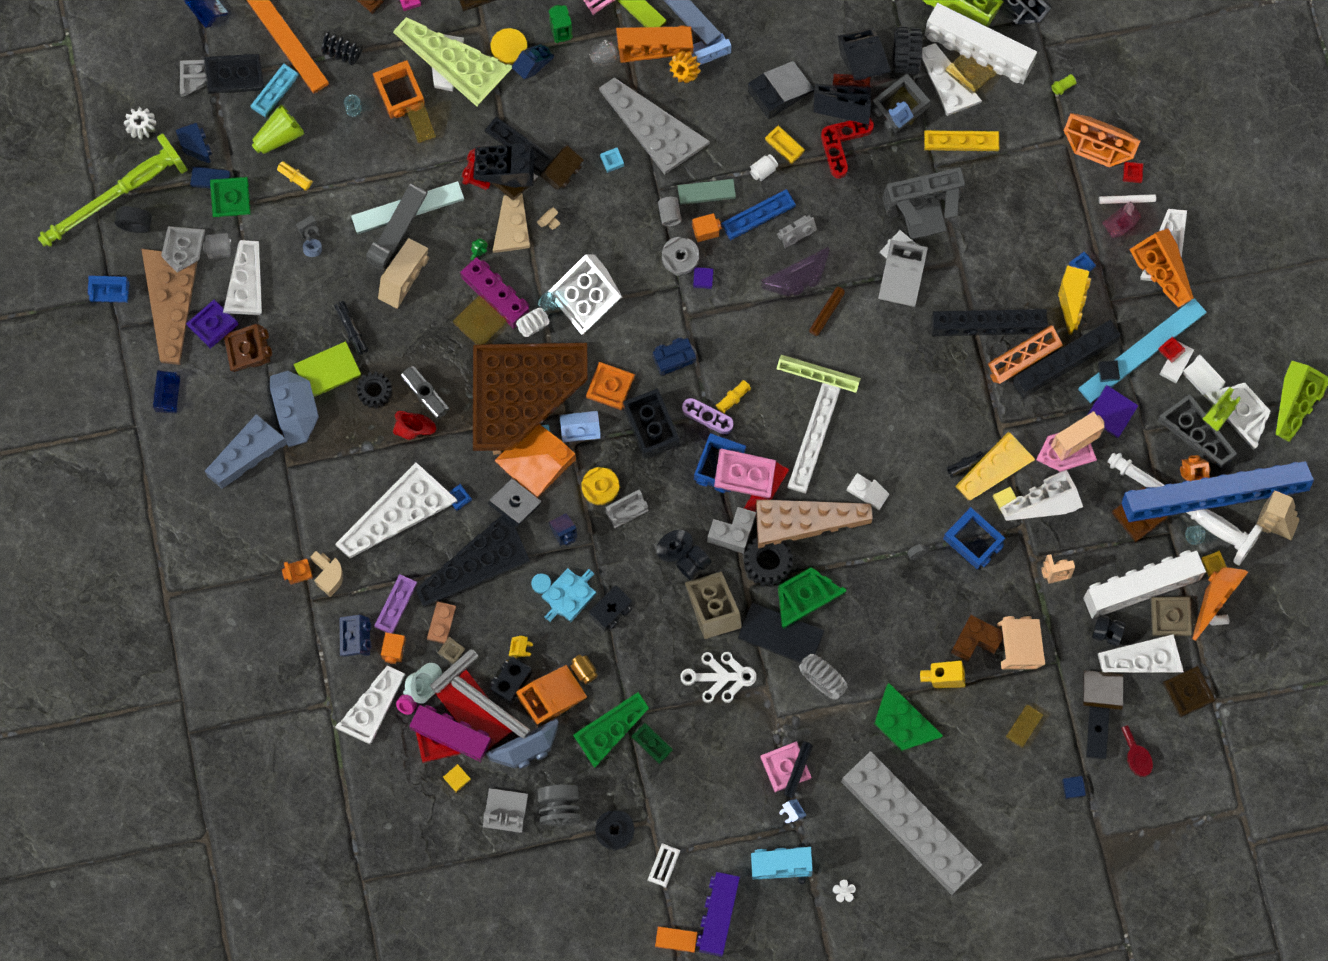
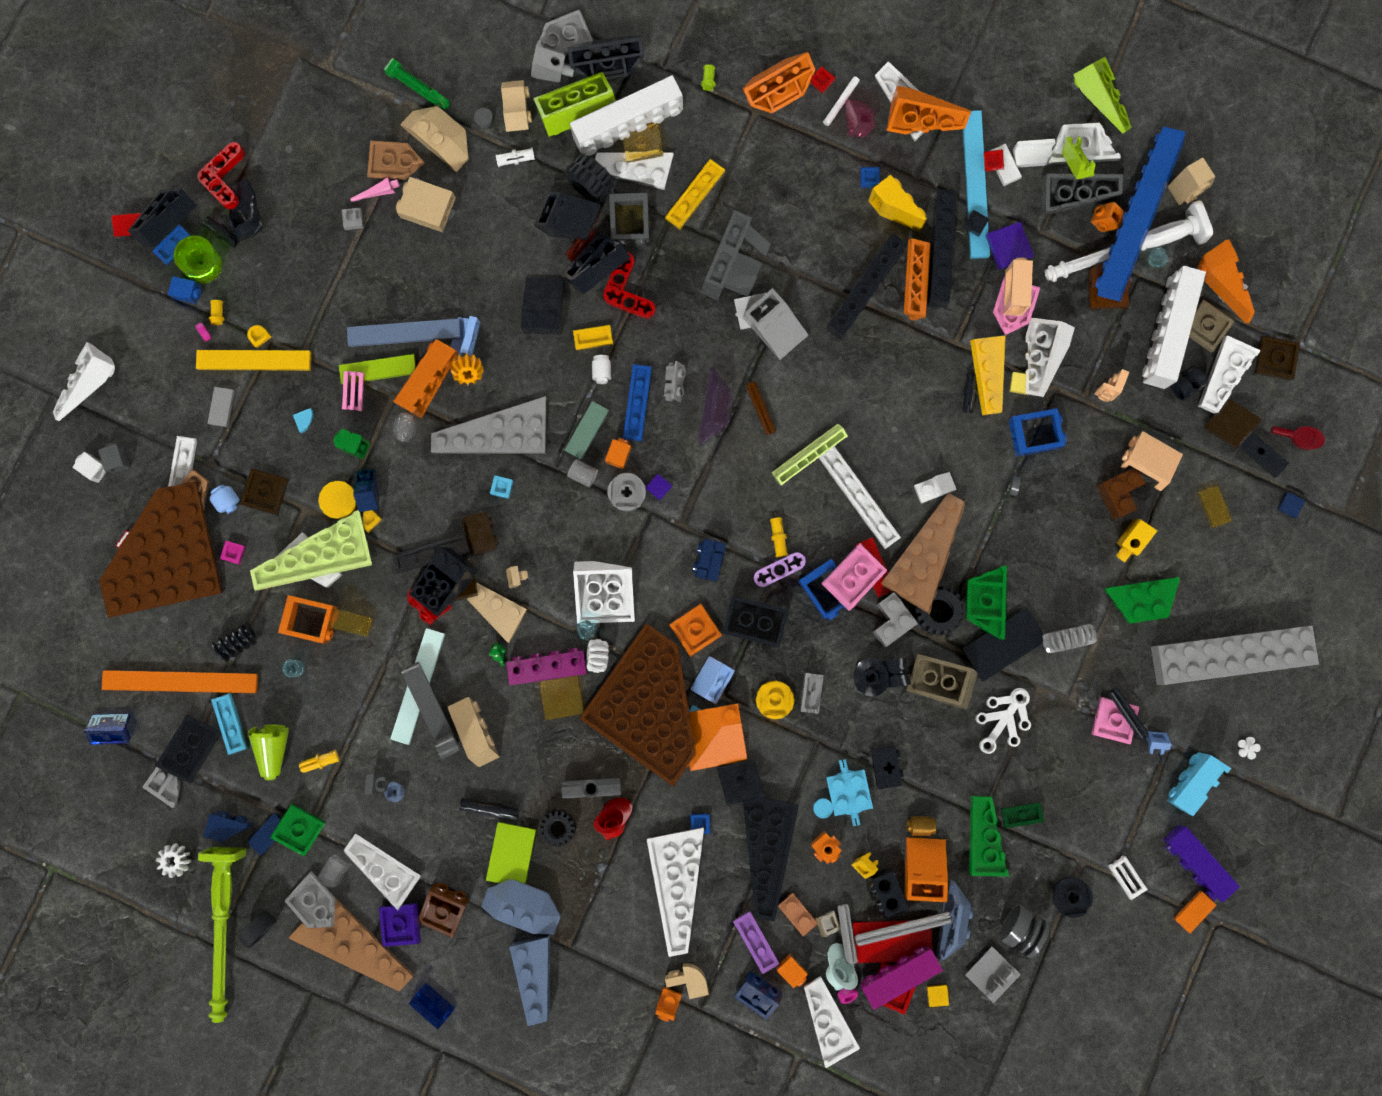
camera: 50 degrees left, 10 degrees up
(108, 289) = (303, 991): blue hinge -> none
(511, 81) = (370, 520): none -> yellow tile
(511, 598) = (821, 843): none -> orange brick
(563, 530) = (793, 759): dark blue slope -> none
(901, 114) = (643, 224): medium blue tile -> none
(1213, 562) = (1188, 258): yellow tile -> none

